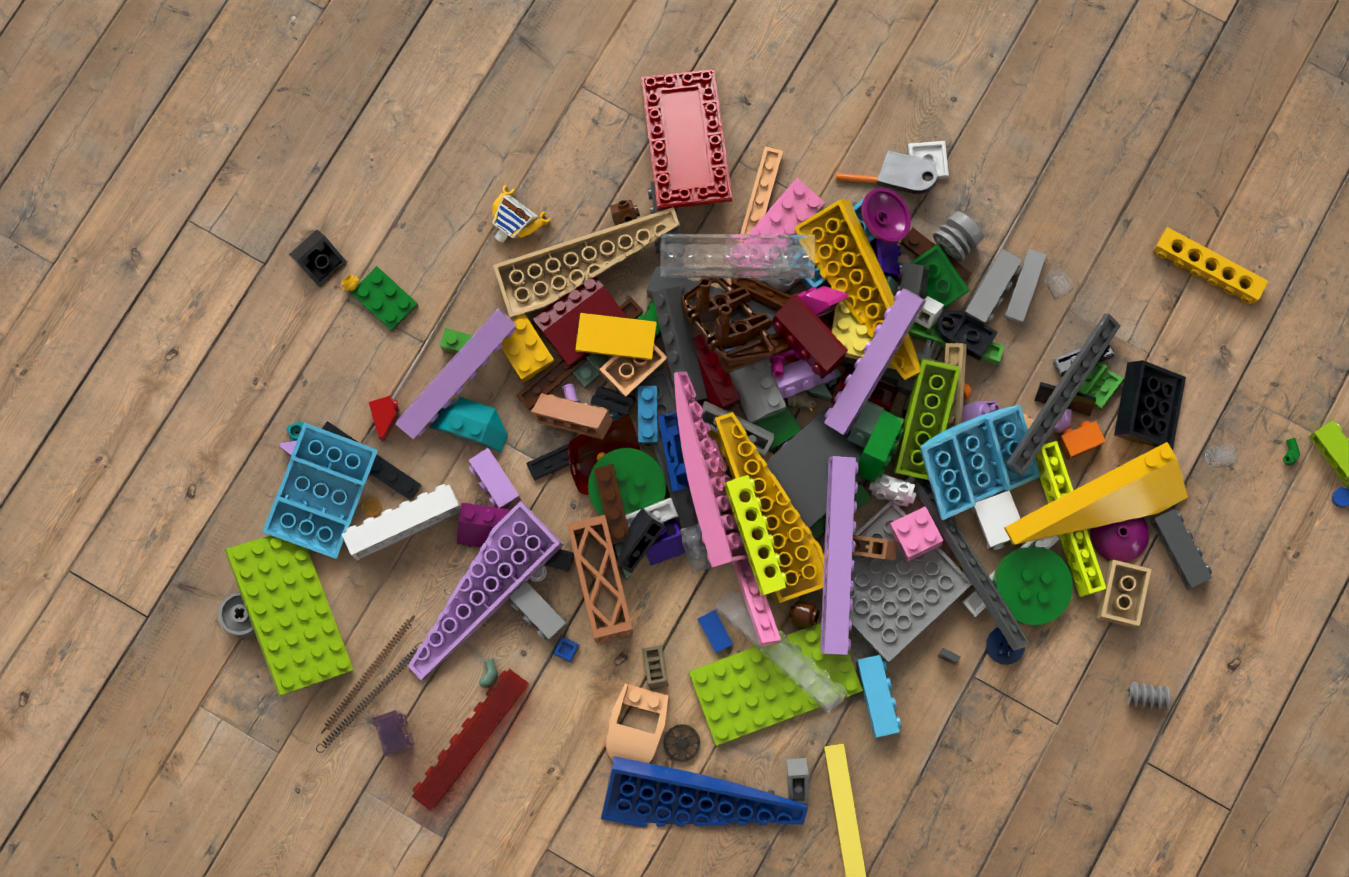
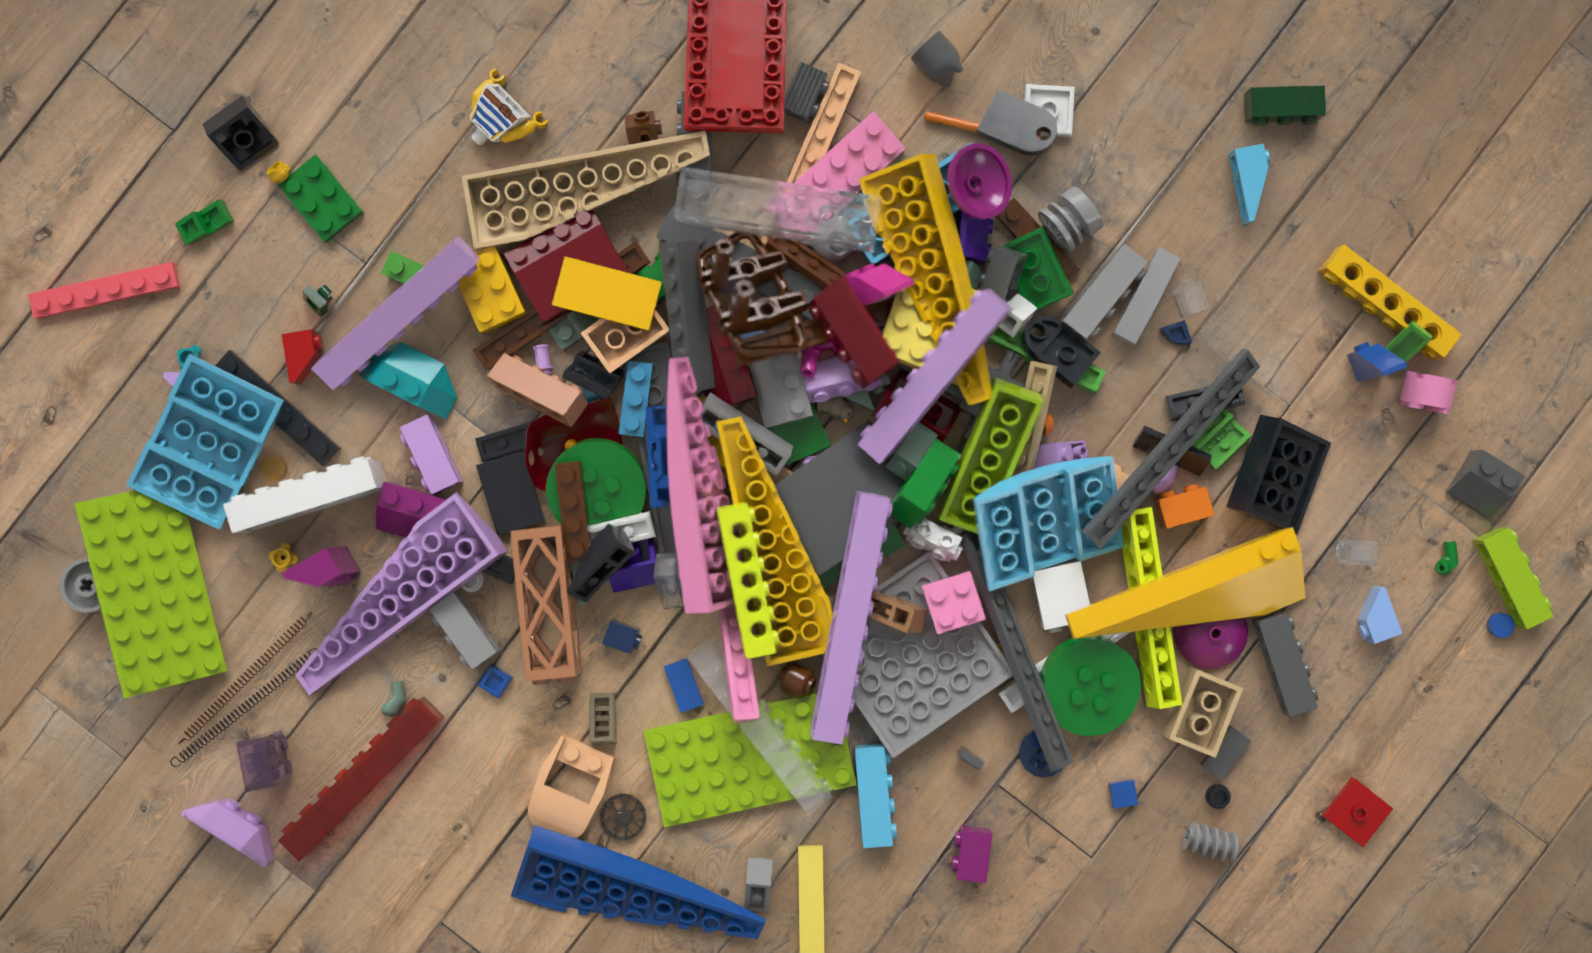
camera: 10 degrees right, 10 degrees up
(224, 390) = (104, 290): none -> coral plate
(297, 328) = (204, 223): none -> green slope
(373, 792) = (234, 827): none -> lavender wedge
(382, 575) = (275, 557): none -> yellow plate
(391, 373) = (317, 299): none -> tile
(424, 575) = (326, 568): none -> magenta slope
(558, 500) = (510, 493): none -> black tile
(662, 599) = (622, 636): none -> dark blue brick
(742, 171) = (804, 92): none -> dark grey brick
(839, 134) = (938, 59): none -> dark grey piece
(962, 731) = (972, 853): none -> magenta brick
(1053, 311) = (1177, 333): none -> dark blue tile
(1073, 669) = (1123, 793): none -> blue tile
(1087, 185) = (1249, 173): none -> medium azure slope
(1104, 132) = (1284, 105): none -> dark green brick
(1147, 660) = (1217, 796): none -> black plate
(1148, 626) = (1230, 750): none -> dark grey tile
(1205, 310) = (1374, 361): none -> blue slope
(1227, 296) = (1409, 341): none -> bright green tile
(1246, 503) = (1378, 617): none -> light blue slope
(1251, 326) = (1428, 390): none -> bright pink brick
(1259, 657) = (1357, 811): none -> red plate
(1308, 390) = (1484, 483): none -> dark grey slope

